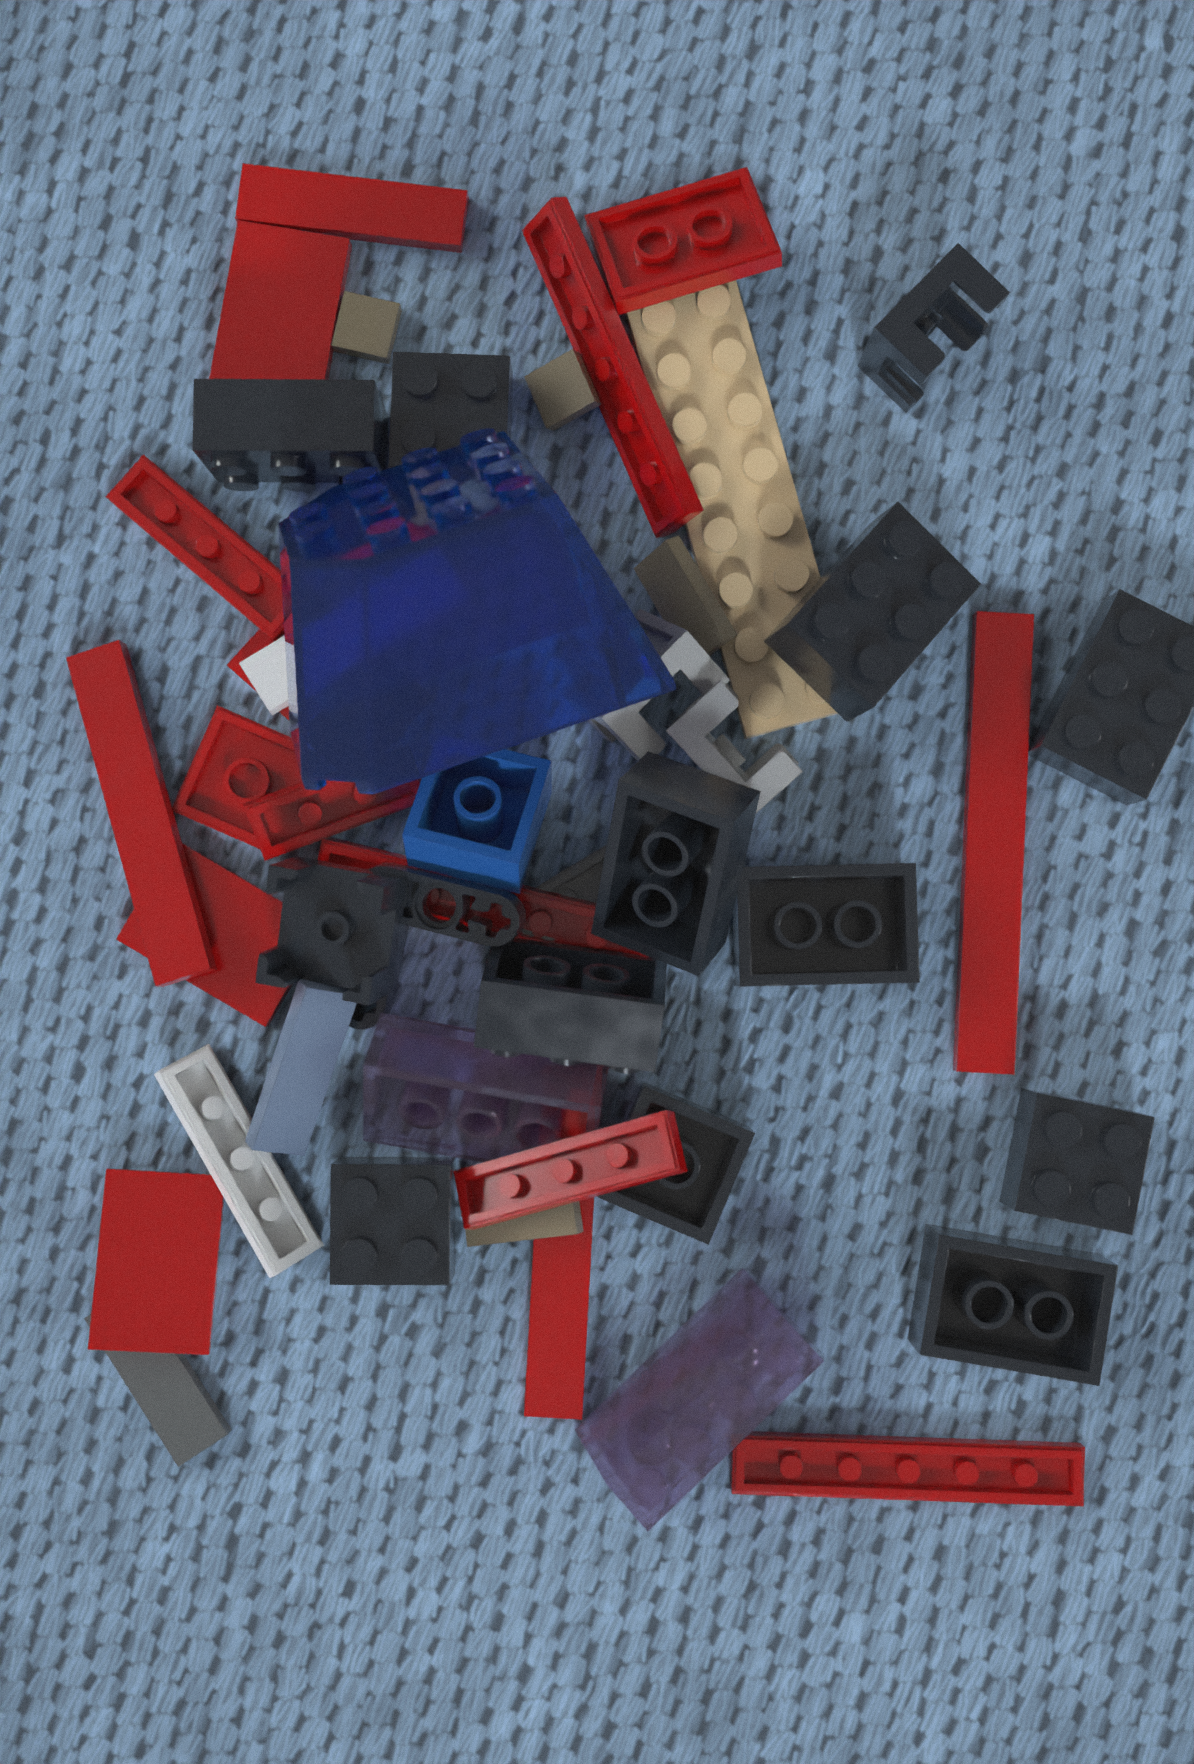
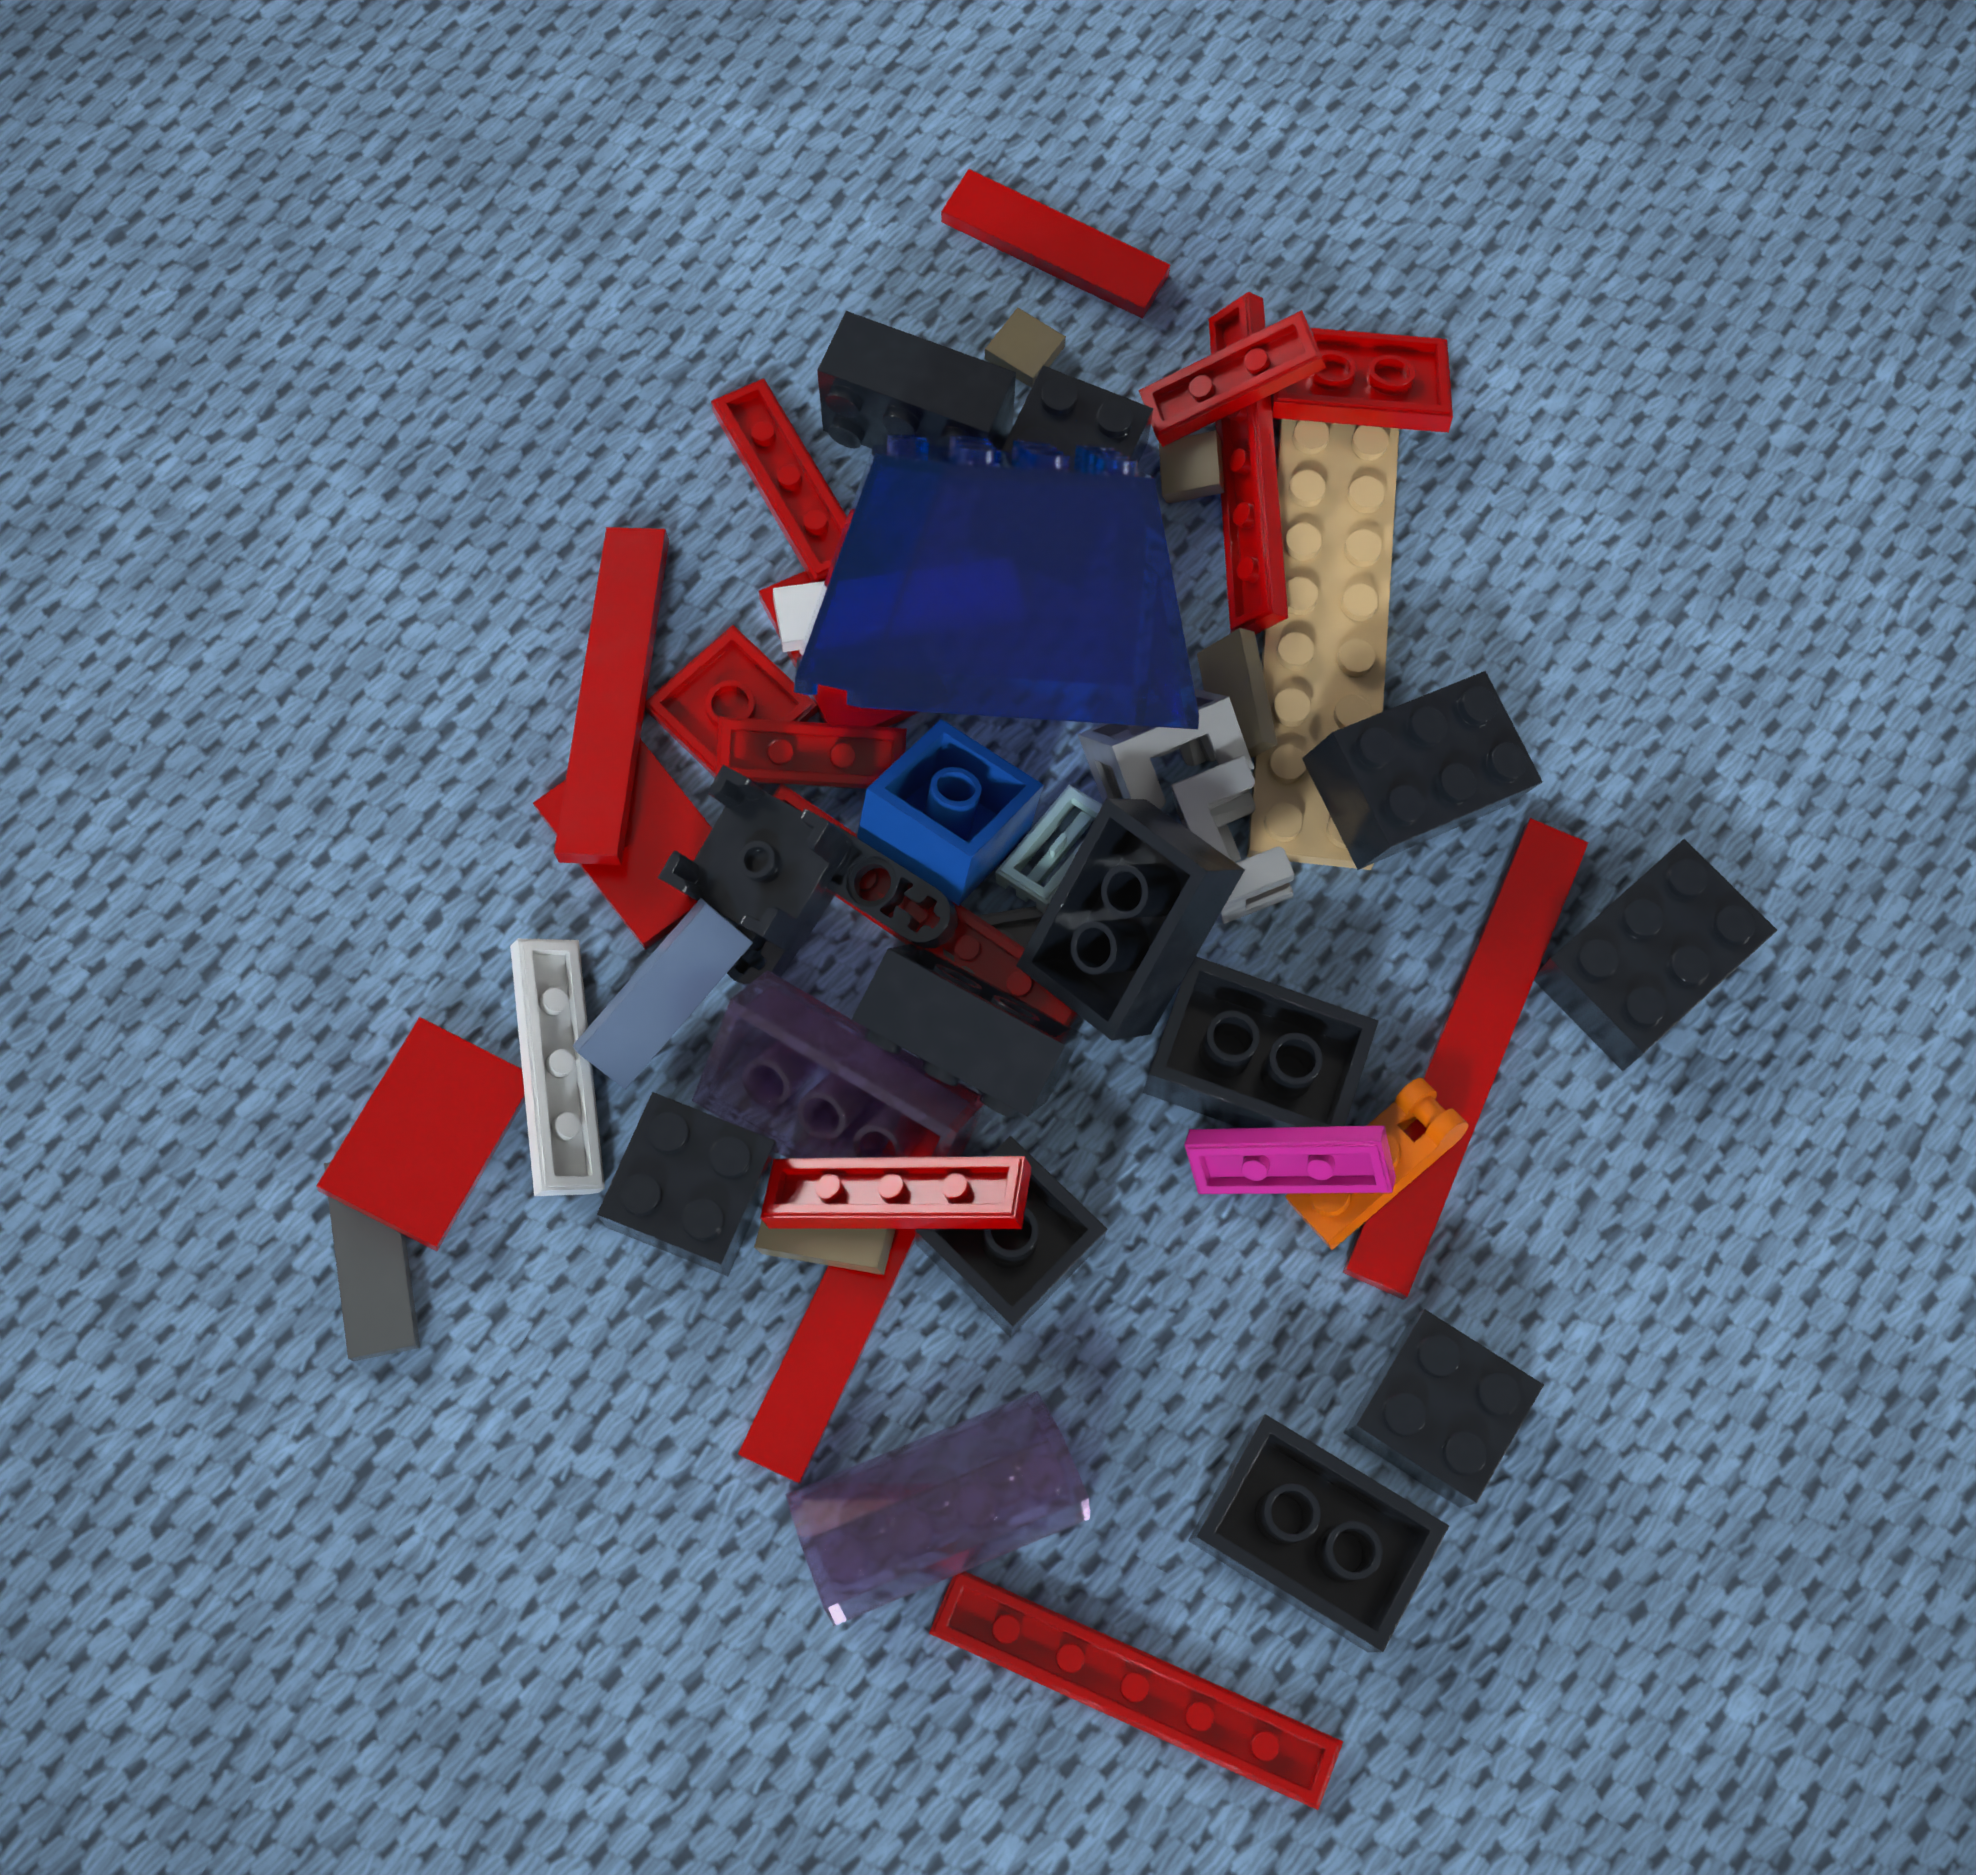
camera: 15 degrees right, 15 degrees down
(280, 304) = (958, 289): red tile -> none
(570, 294) = (1232, 378): none -> red tile
(570, 847) = (1030, 887): none -> light aqua tile
(883, 1008) = (1291, 1160): none -> dark pink tile
(930, 304) = (1576, 510): black panel -> none
(951, 976) = (1340, 1214): none -> orange plate

